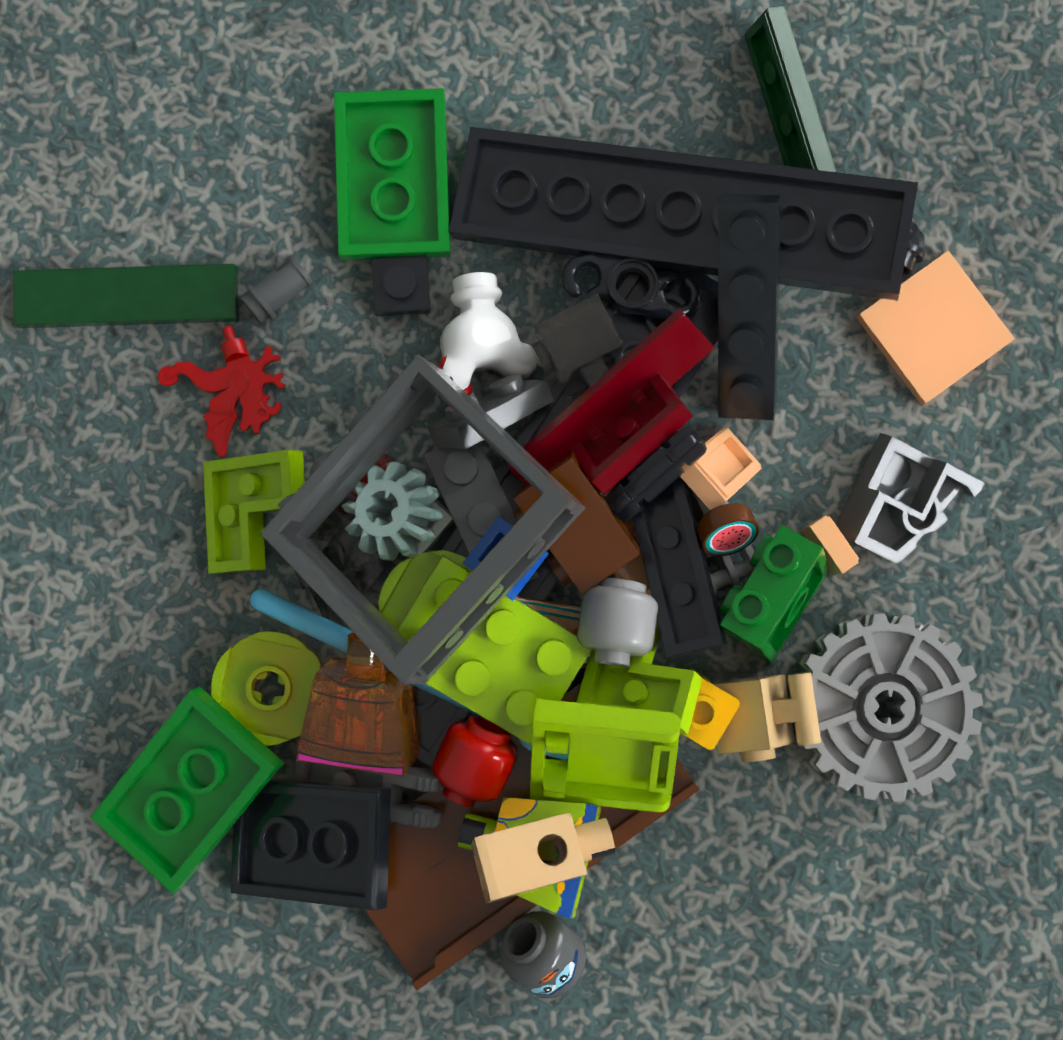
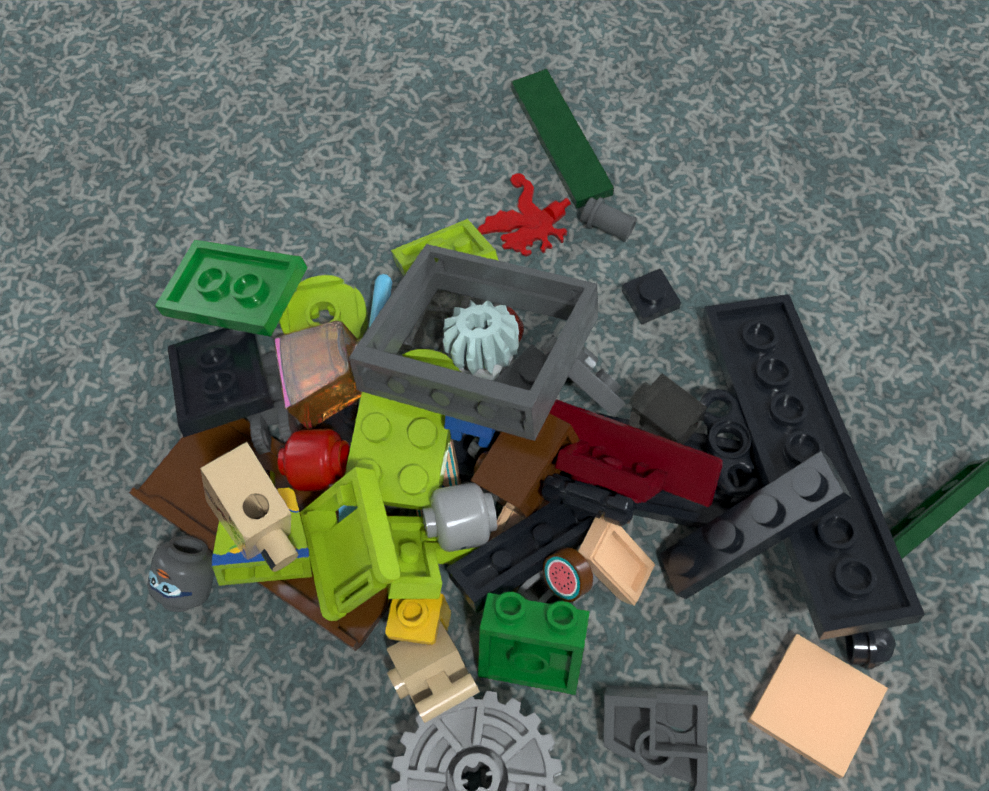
camera: 70 degrees right, 20 degrees down
(392, 174) = (728, 259): green plate -> none
(482, 334) = (637, 354): white animal -> none
(836, 548) = (594, 680): light nougat tile -> none

